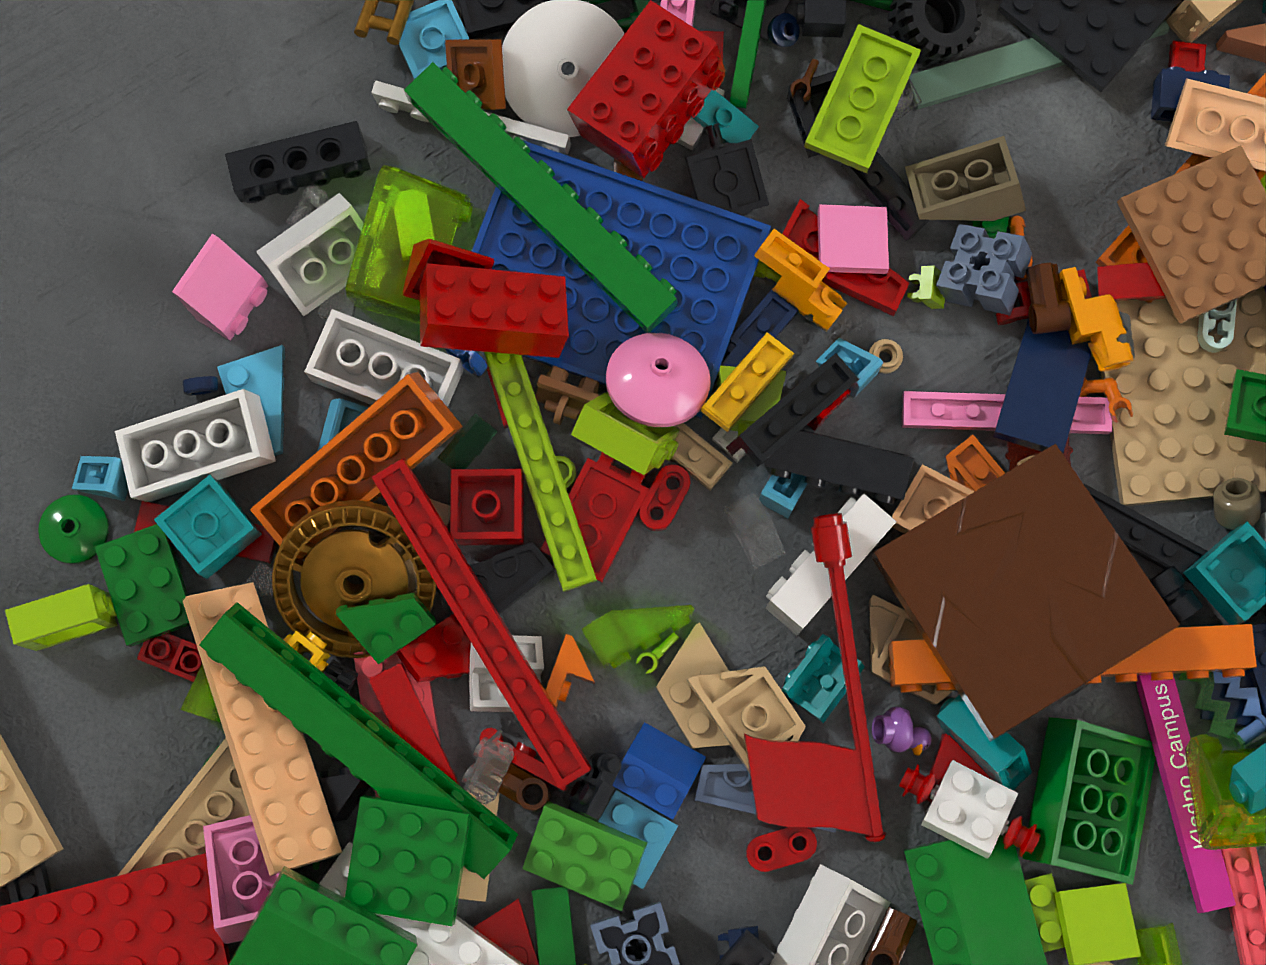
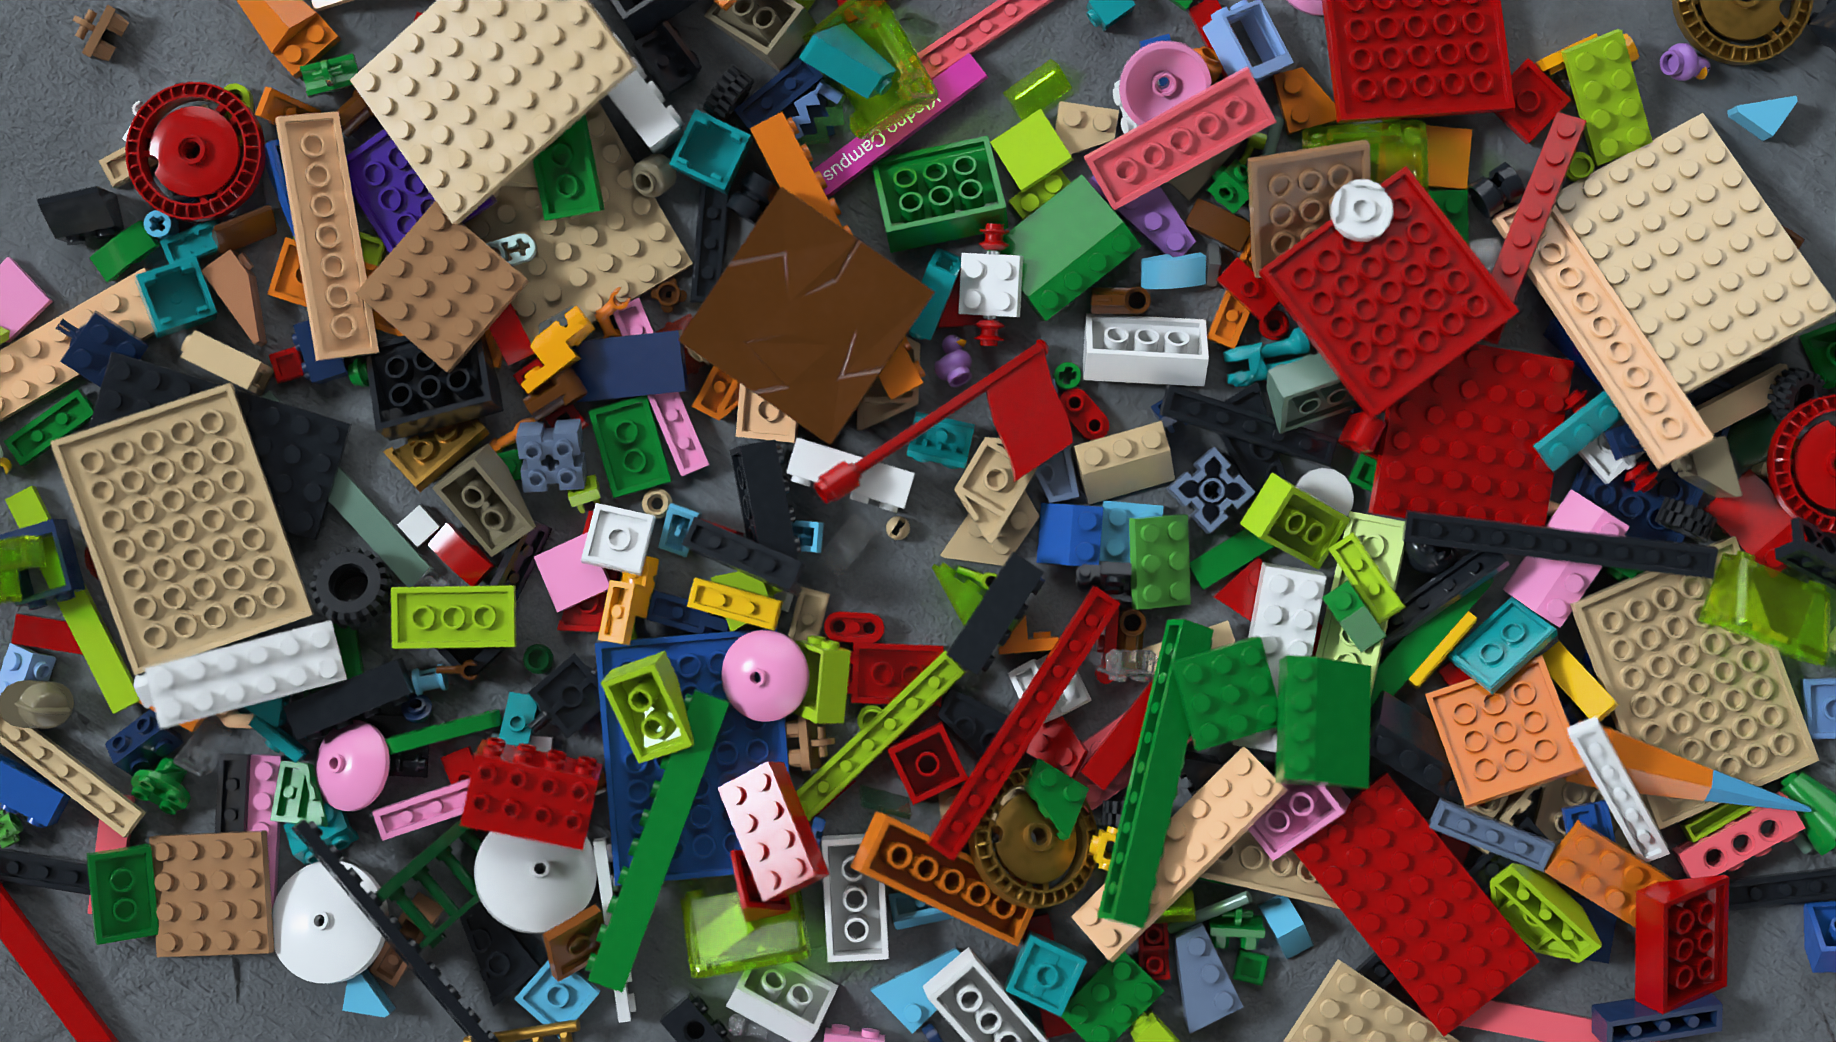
camera: 120 degrees left, 10 degrees up
(105, 752) = (1250, 967): none -> green tile
(113, 693) = (1202, 979): none -> sand blue wedge
(128, 810) = (1286, 925): none -> medium azure slope
(157, 756) = (1236, 923): none -> green hips
(183, 741) = (1213, 911): none -> sand green bar
(612, 648) = (995, 613): none -> black brick
(682, 245) = (649, 706): none -> lime slope
(709, 868) = (1124, 462): none -> tan slope
(741, 595) = (903, 532): none -> tan hinge
(779, 169) = (538, 658): none -> dark green plate
(808, 49) = (429, 680): none -> medium azure bush
(842, 846) = (1060, 369): none -> green bush
(868, 295) = (618, 539): none -> white plate
(916, 139) = (460, 555): none -> red slope
(957, 354) = (630, 446): none -> green plate
(967, 113) = (419, 526): none -> white tile
(1036, 158) = (431, 455): none -> pearl gold wing
(1100, 164) = (418, 395): none -> black slope
(1107, 458) = (669, 285): none -> reddish brown plate
(1150, 123) = (358, 372): none -> green plate

